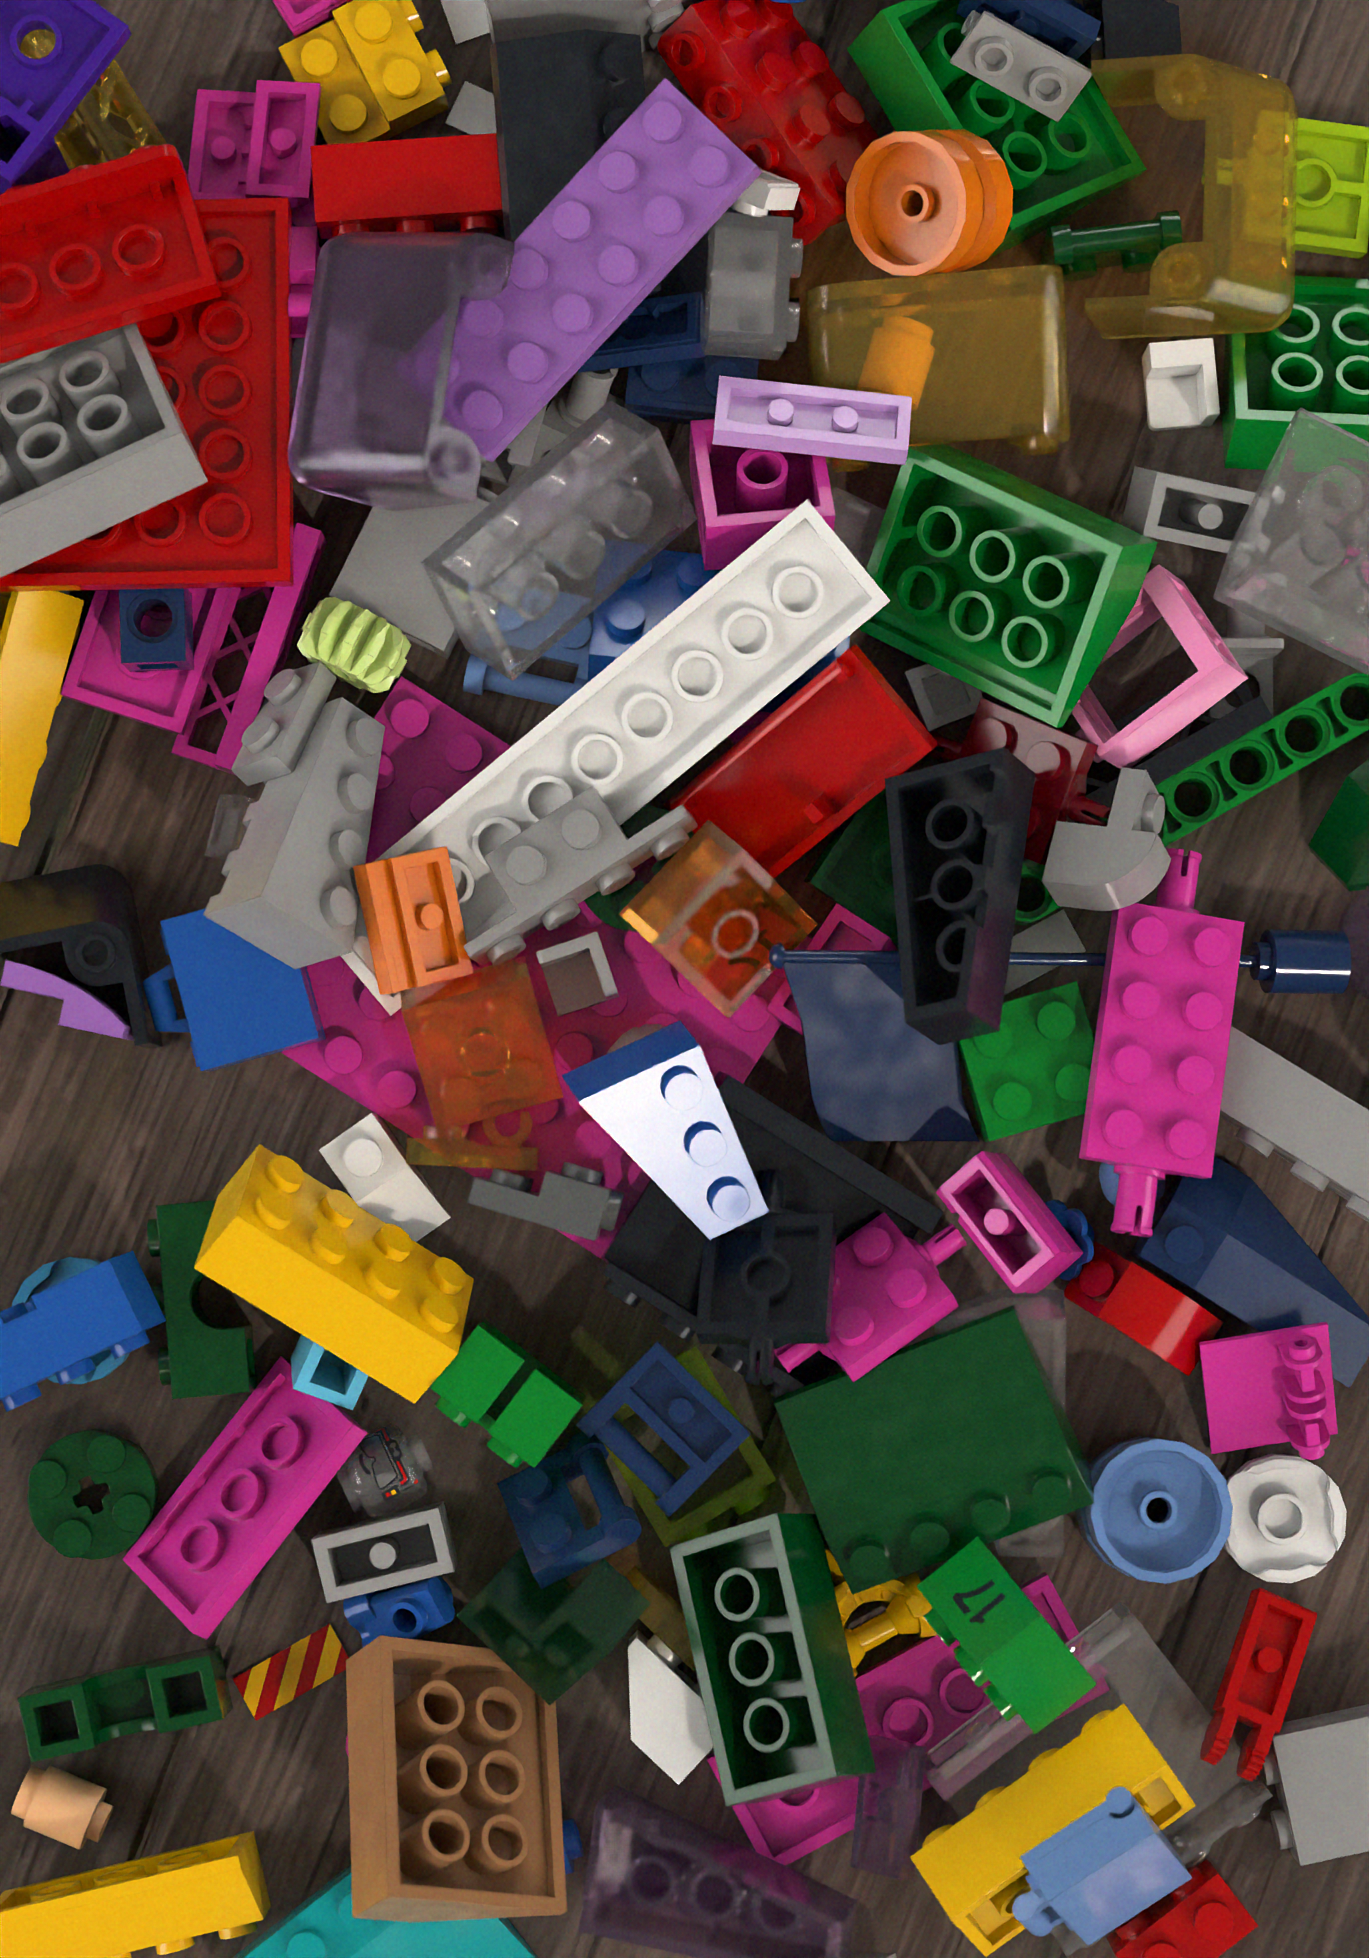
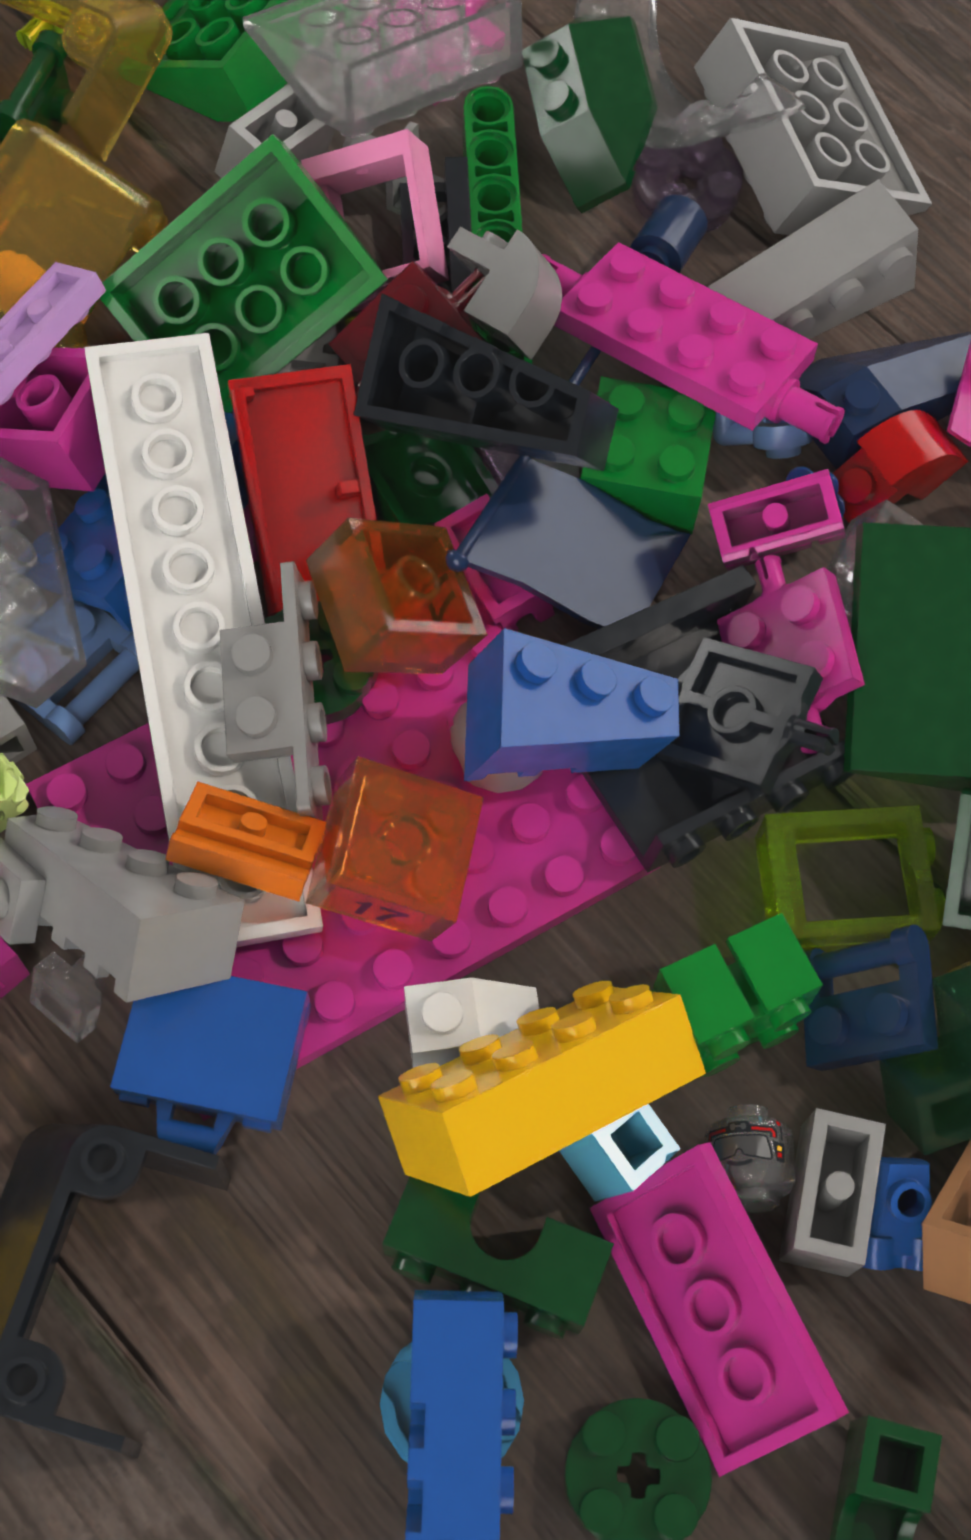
camera: 70 degrees left, 20 degrees down
(81, 1005) = (157, 1205): medium lavender slope -> none
(292, 1672) = (907, 1362): sticker -> none
(448, 1149) = (474, 938): clear yellow plate -> none
(566, 1202) = (581, 846): dark grey plate -> none
(577, 974) = (378, 733): light grey panel -> none
(679, 1412) = (827, 845): dark blue plate -> none
(1180, 384) = (172, 122): white panel -> none

